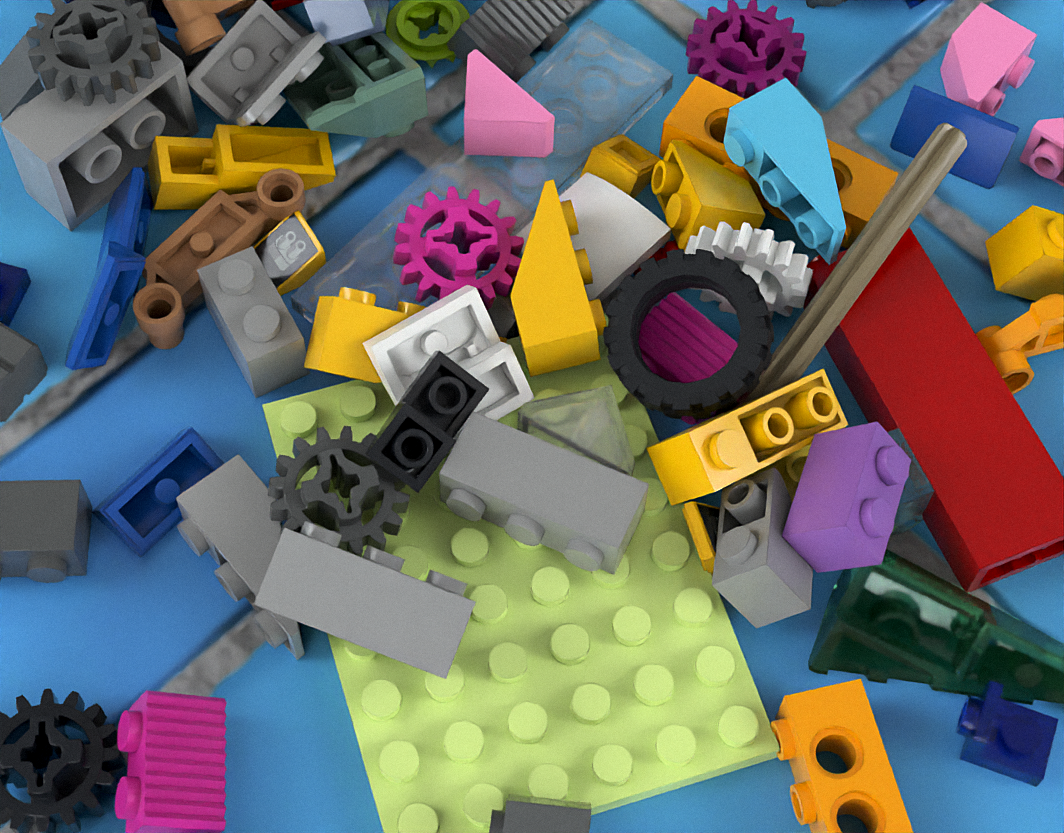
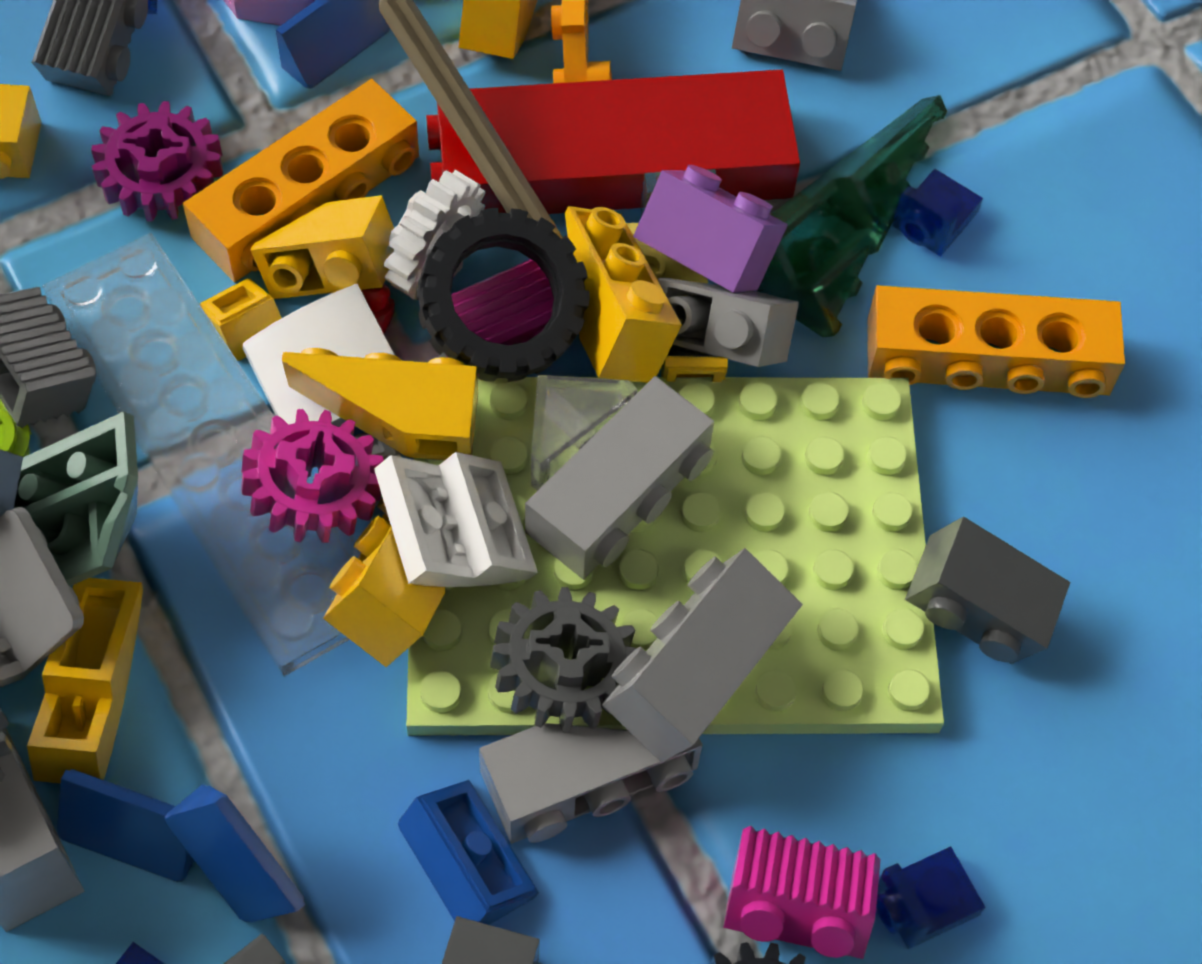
camera: 75 degrees left, 0 degrees up
(212, 233) = (181, 734): medium nougat plate -> none
(254, 321) = (306, 705): light grey brick -> none
(290, 253) = (224, 656): slope -> none
(426, 421) = (529, 562): black slope -> none
(502, 115) = (154, 387): bright pink slope -> none
(788, 155) = (337, 148): medium azure slope -> none

